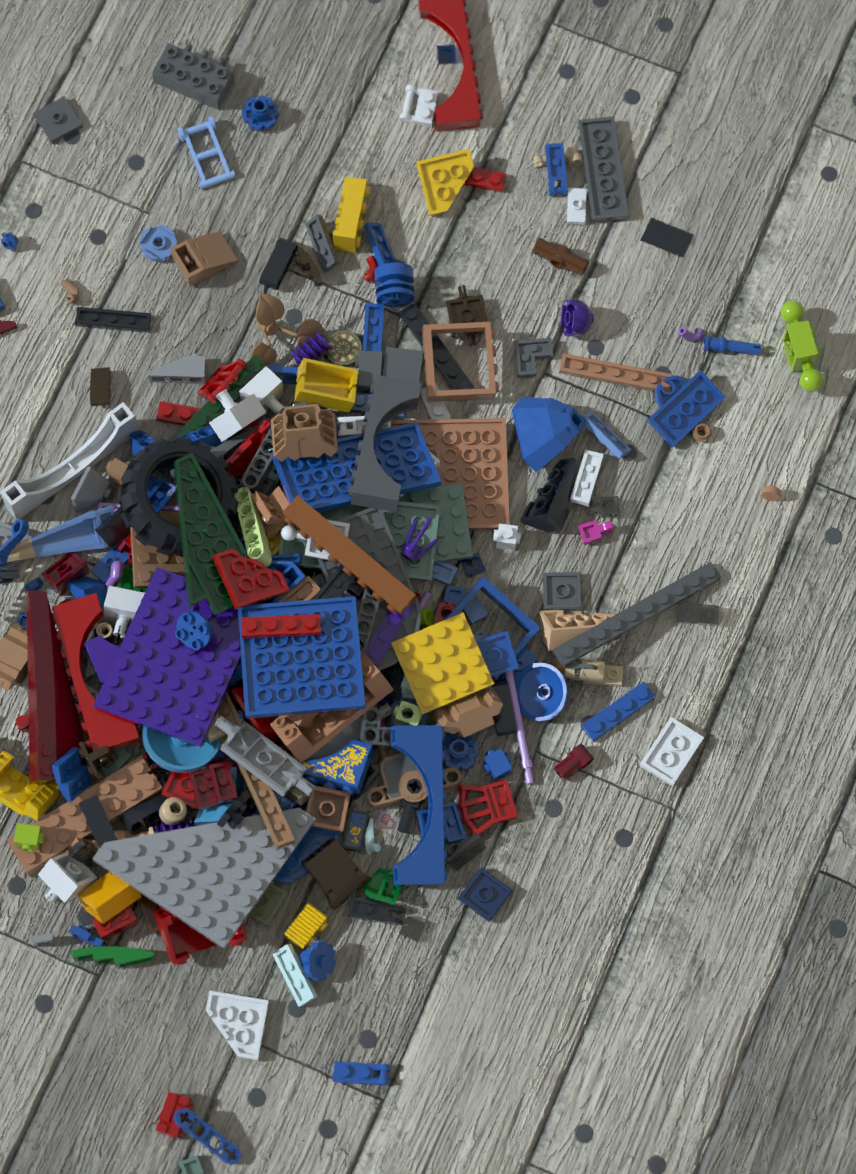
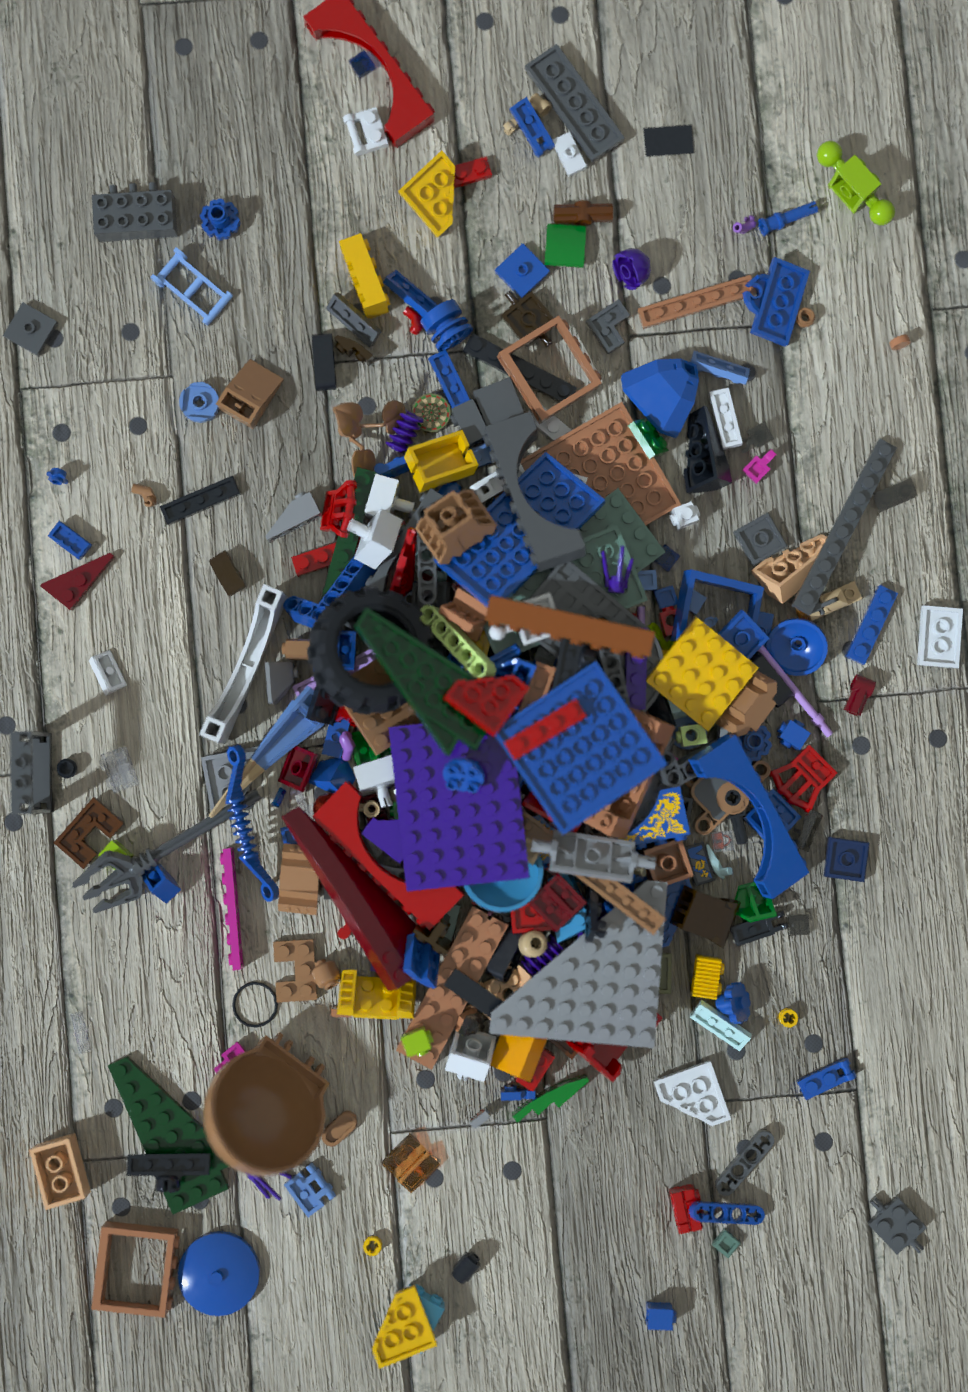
camera: 35 degrees left, 15 degrees up
(247, 1103) = (741, 1159): none -> dark grey beam
(353, 1006) = (794, 1019): none -> yellow bush
(484, 276) = (522, 271): none -> blue plate
(510, 458) = (648, 438): none -> green plate
(531, 274) = (565, 245): none -> green slope

